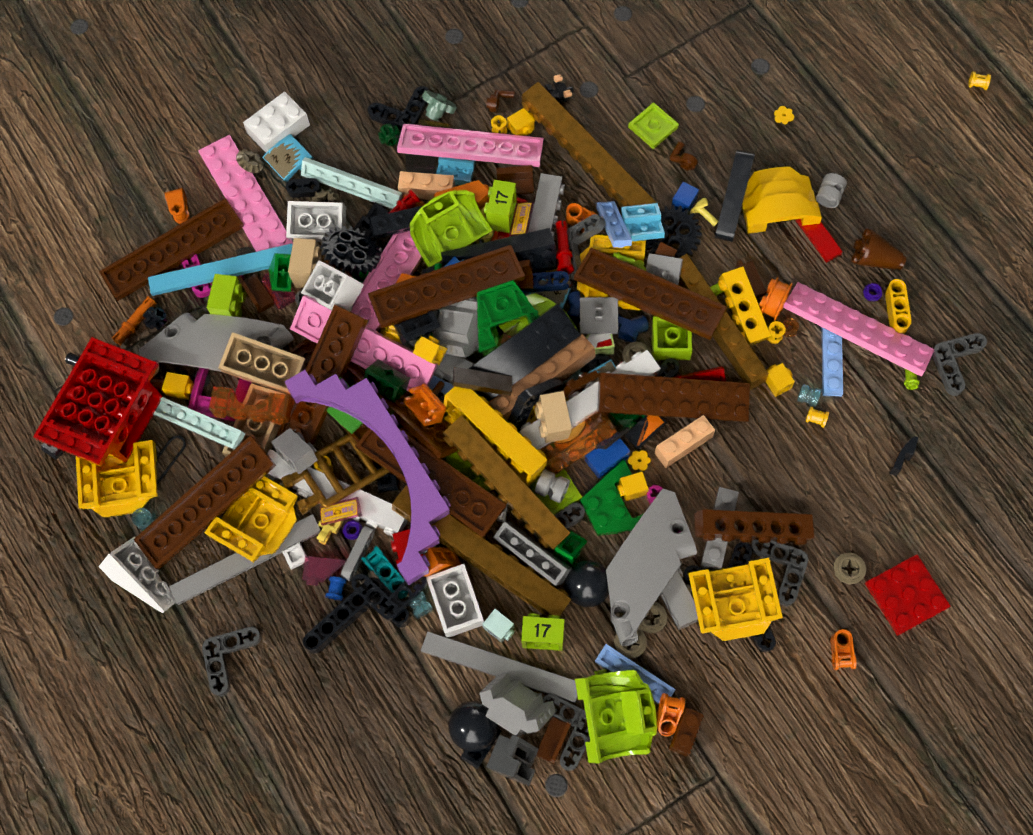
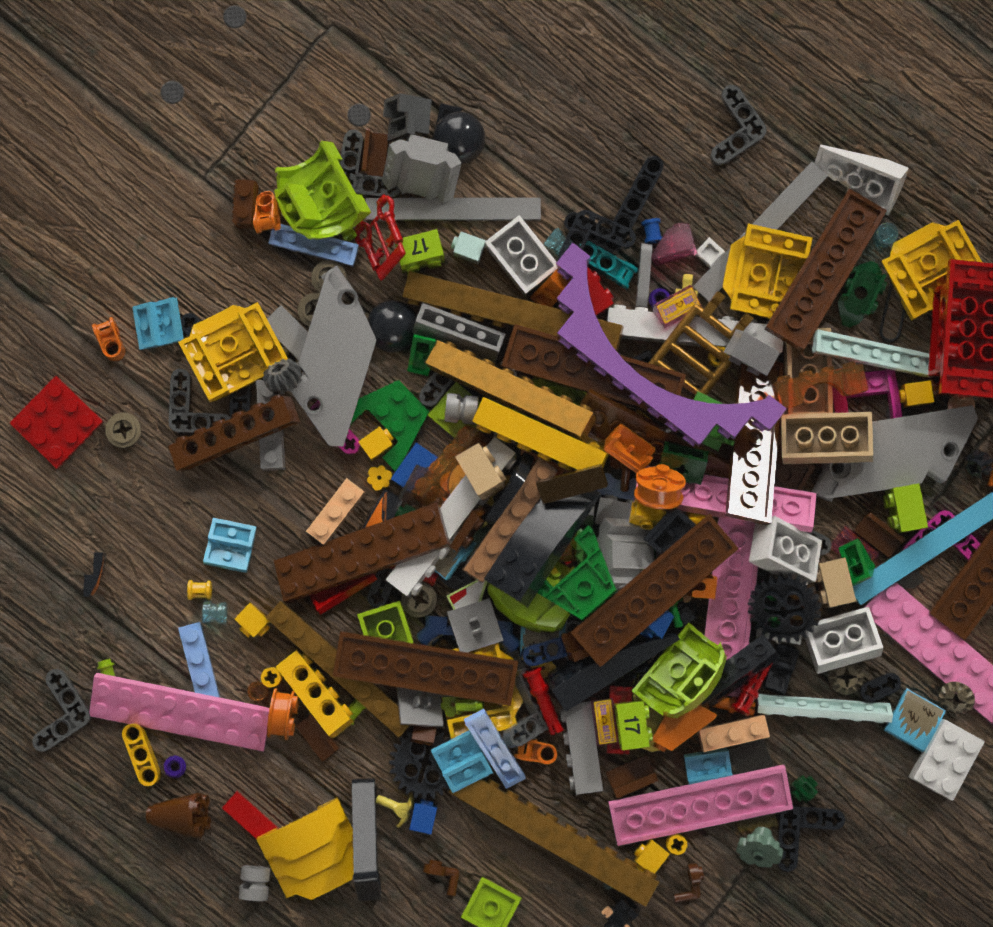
camera: 155 degrees right, 15 degrees up
(171, 477) = (850, 307): none -> dark green piece
(412, 360) = (659, 487): none -> orange wheel
(560, 645) = (395, 236): none -> red piece
(698, 555) = (282, 376): none -> dark grey gear
(781, 445) = (229, 545): none -> medium azure slope
(794, 651) = (158, 323): none -> medium azure slope

